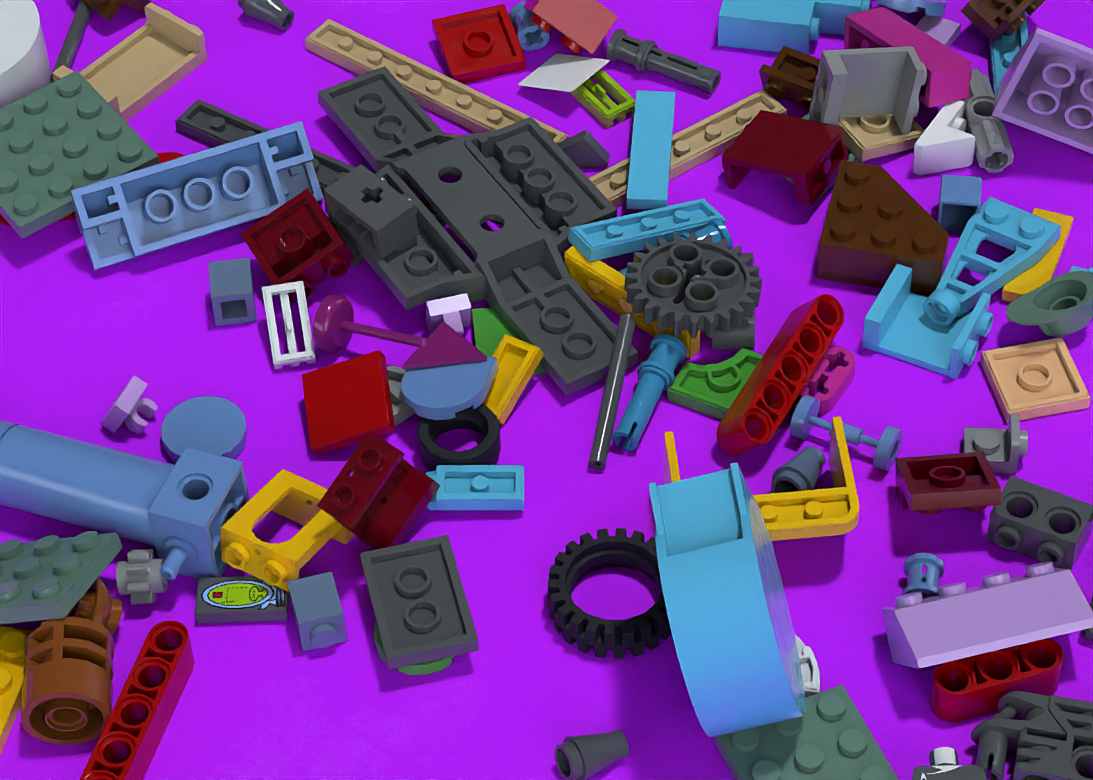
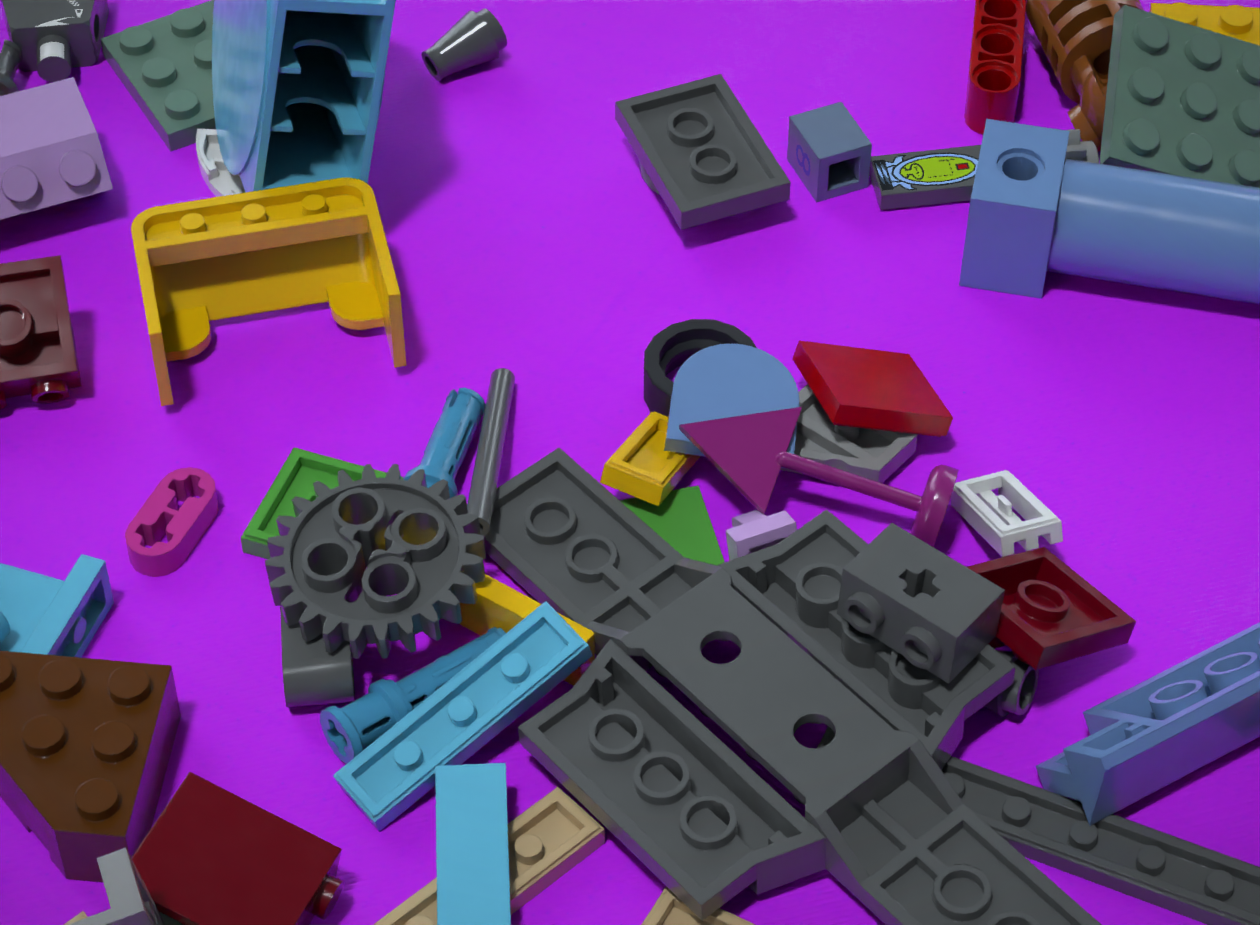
camera: 170 degrees right, 0 degrees up
(127, 406) = (1190, 380): lavender tile -> none
(204, 425) = (1070, 373): medium blue tile -> none
(232, 291) = (1119, 560): sand blue brick -> none
(280, 562) = (879, 266): yellow panel -> none
(381, 495) = (769, 260): dark red panel -> none
(478, 487) = (635, 316): medium azure hinge -> none
(585, 150) = (601, 893): dark grey tile -> none
(595, 631) = (457, 160): black tyre -> none
(780, 375) = (235, 487): red beam -> none
(799, 472) = (216, 366): sand blue cone -> none
(886, 448) = (89, 409): medium blue wheel -> none
(919, 582) = (69, 237): medium blue bush -> none

